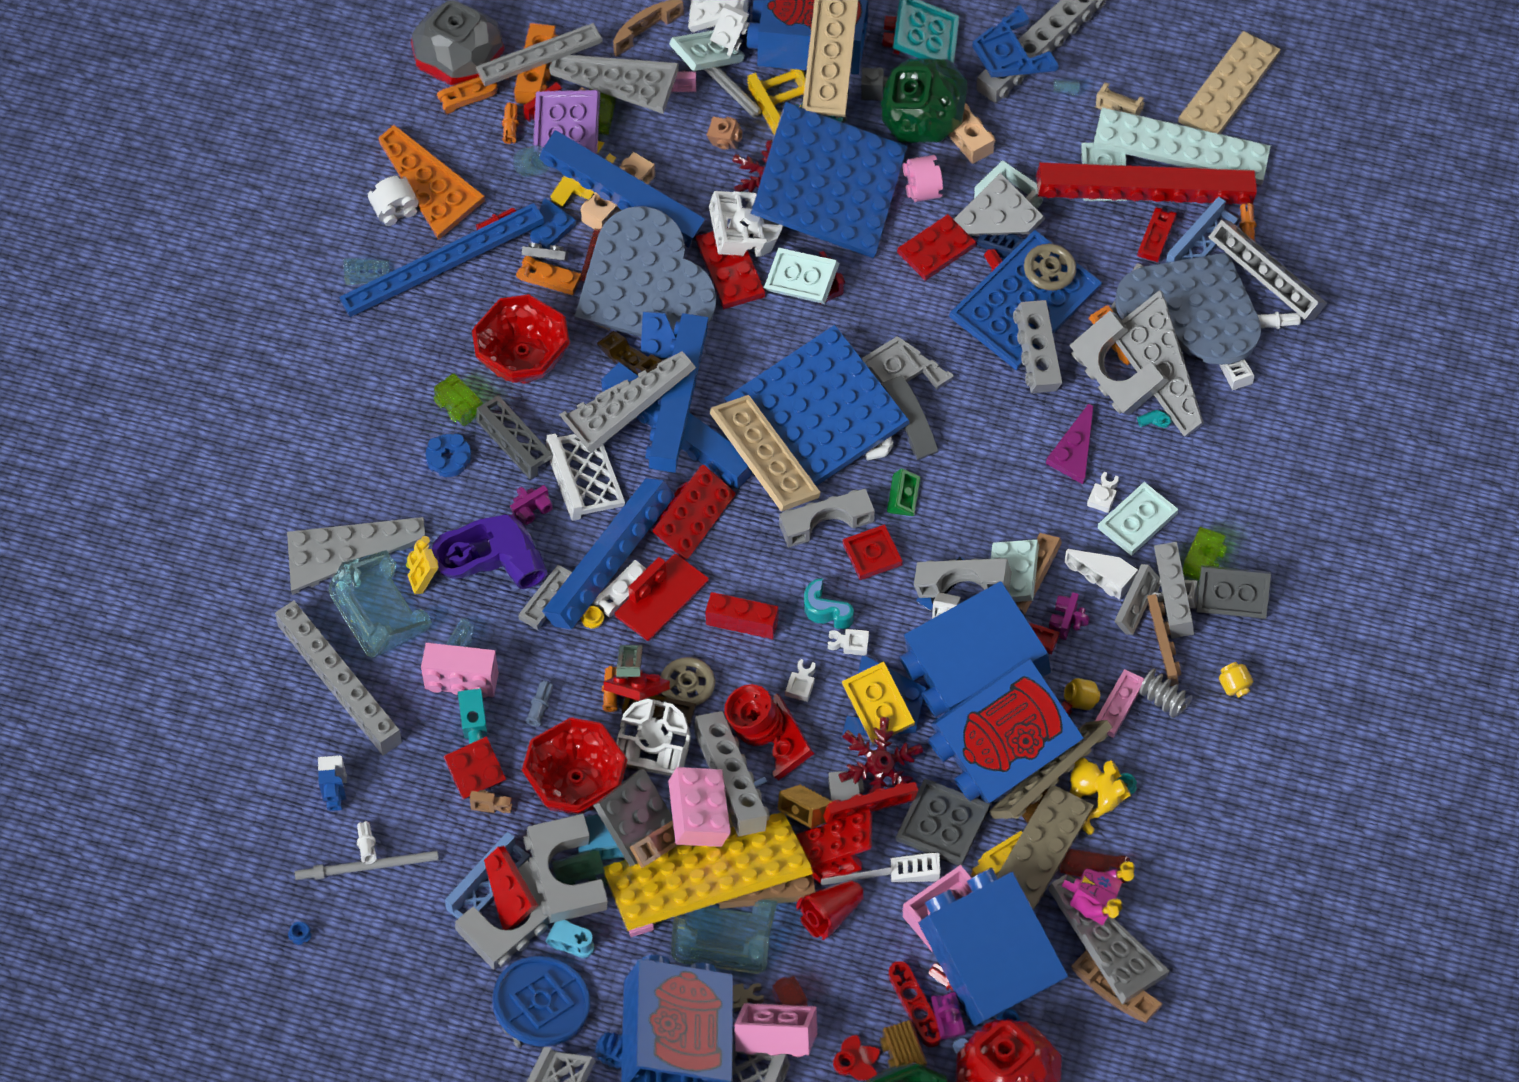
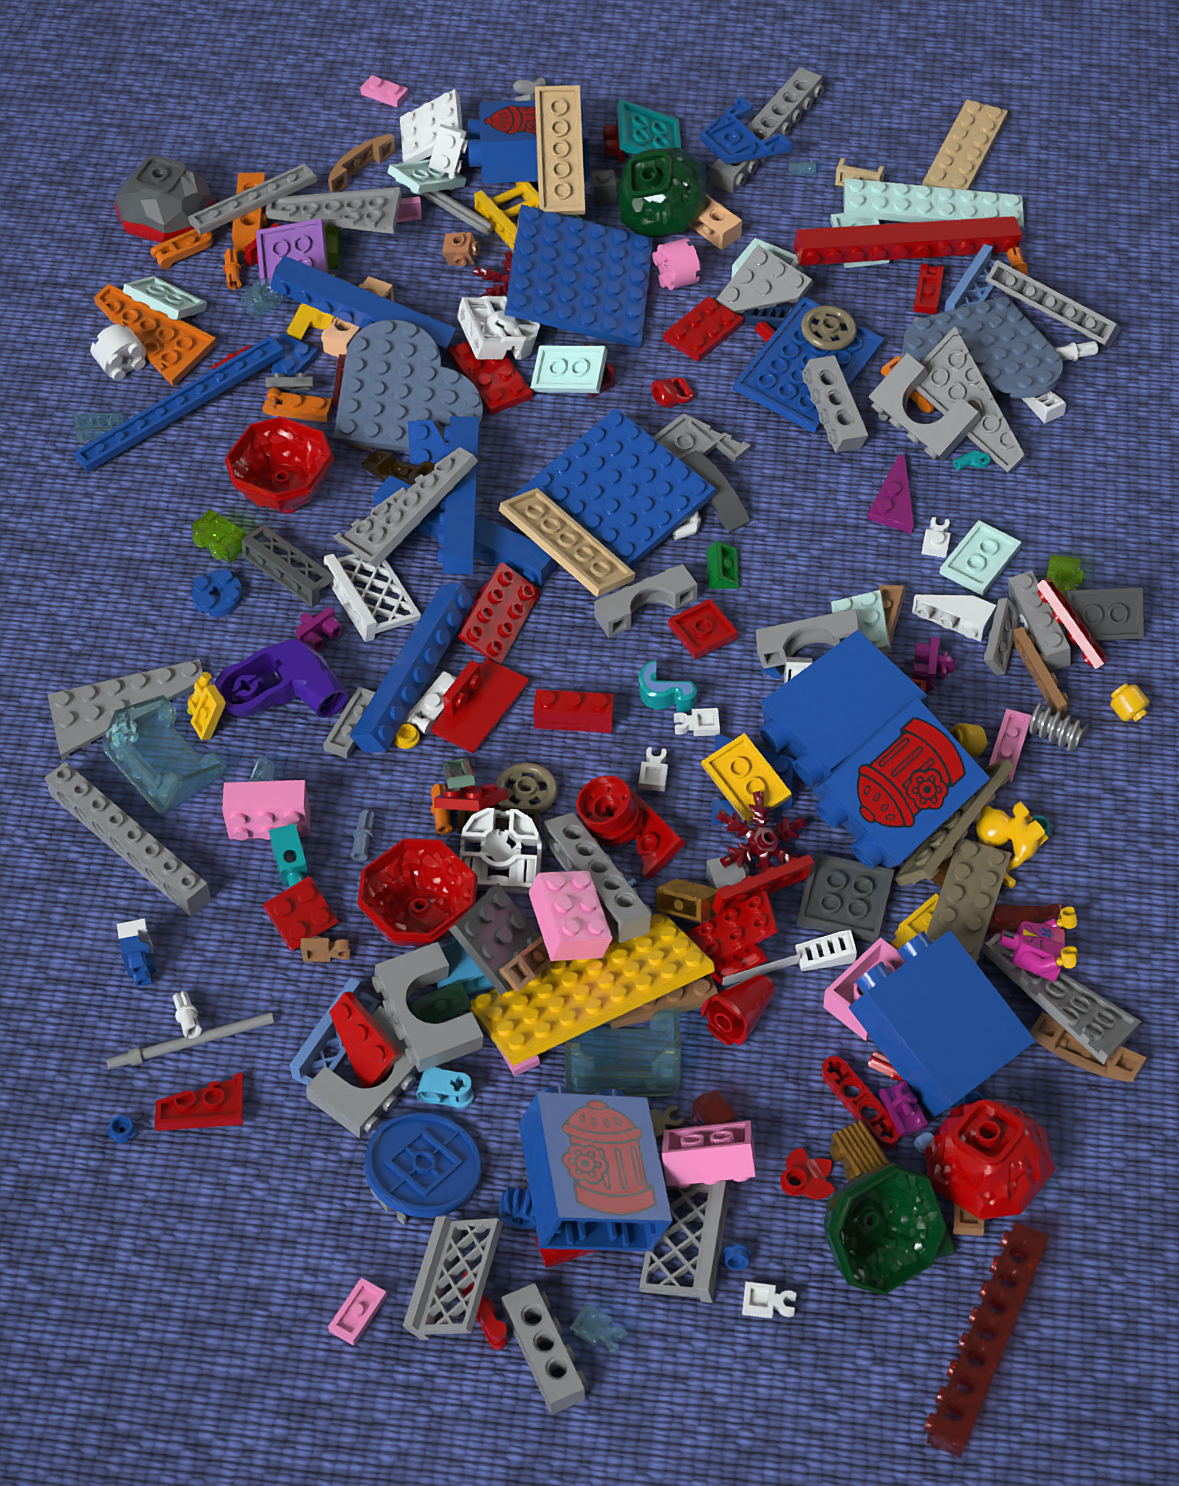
camera: 10 degrees left, 5 degrees down
(369, 925) = (210, 1107): none -> red wing
(443, 147) = (164, 297): none -> light aqua plate
(888, 311) = (668, 395): none -> red piece
(1200, 597) = (1066, 615): none -> plate

